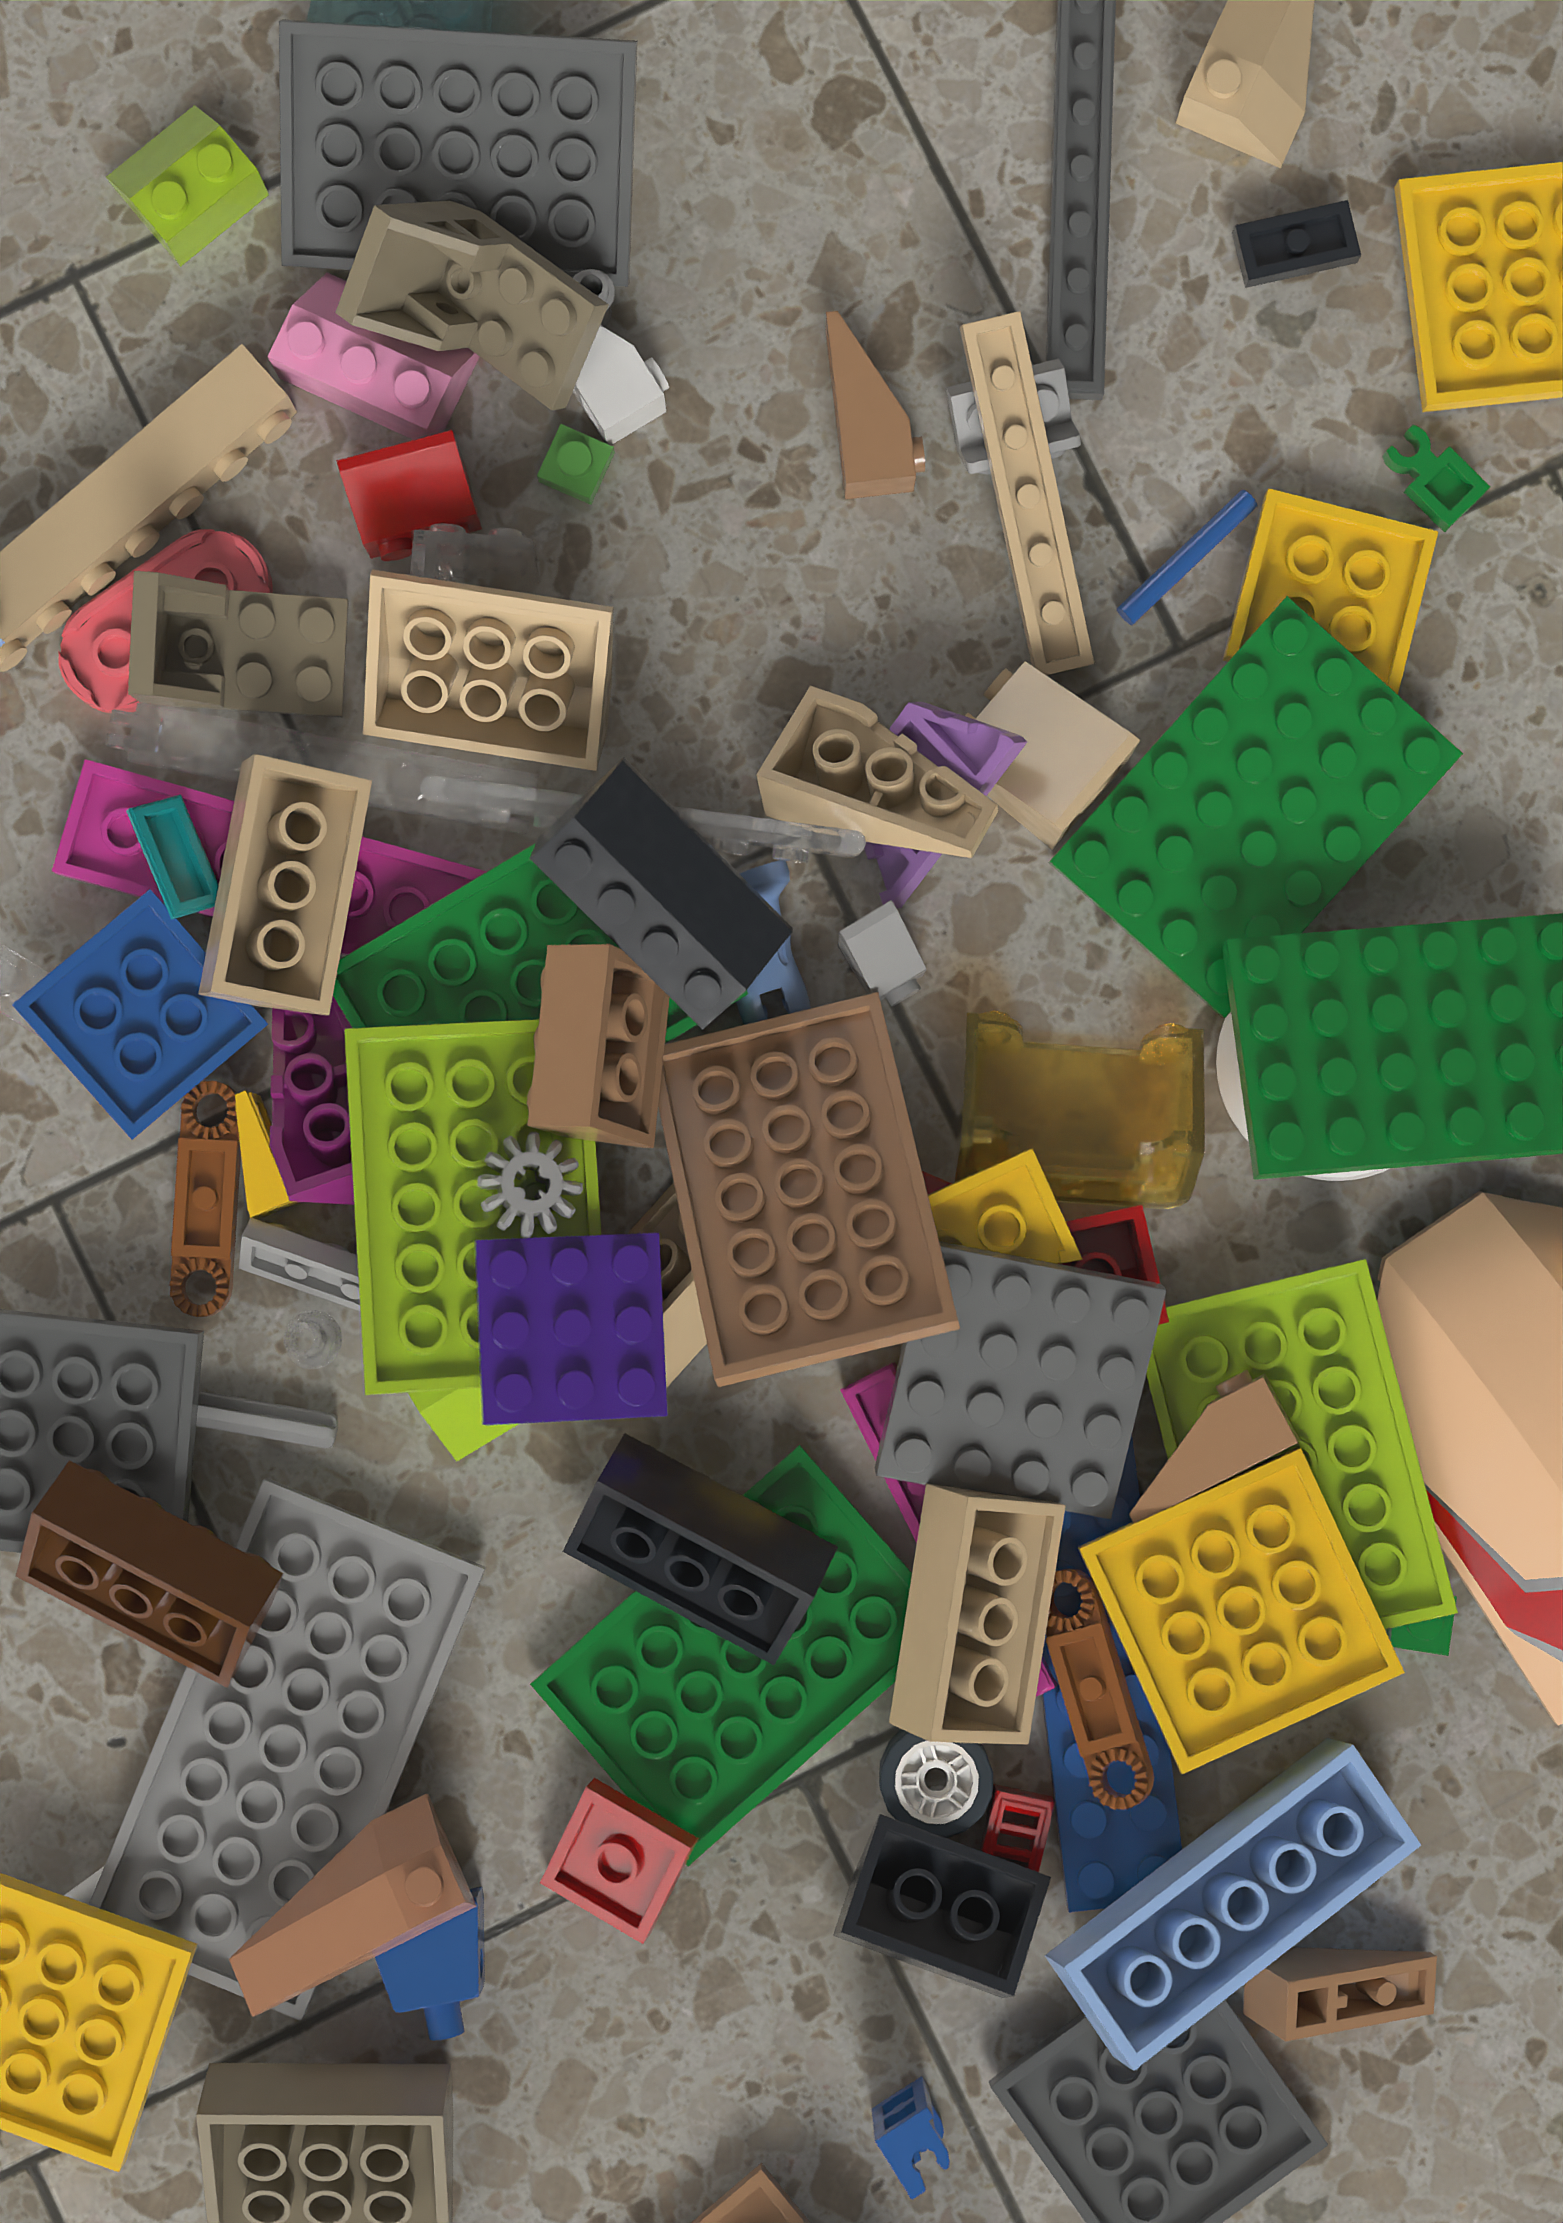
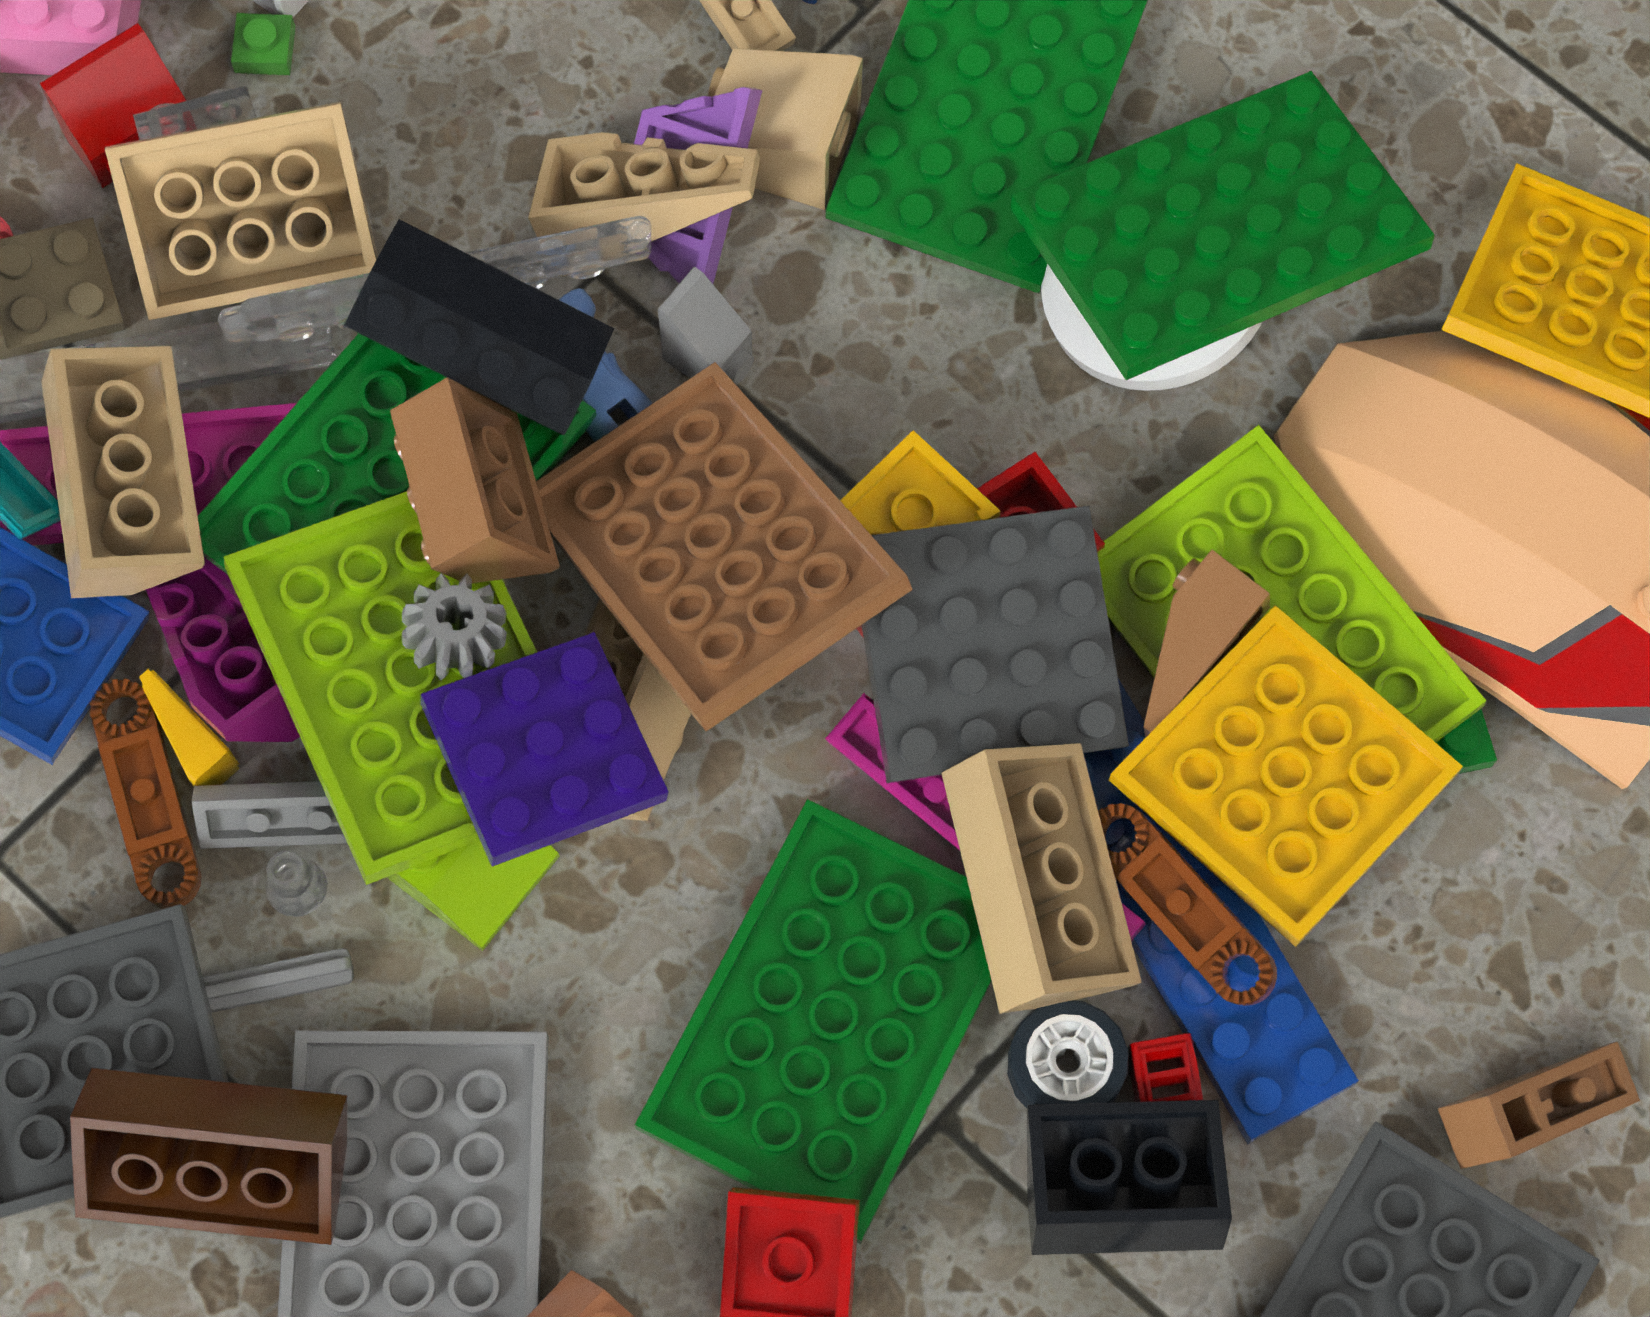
camera: 25 degrees left, 15 degrees down
(700, 1549) = (748, 923): black slope -> none
(1098, 1118) = (971, 405): clear yellow windscreen -> none
(1232, 1901) = (1399, 1052): light blue brick -> none

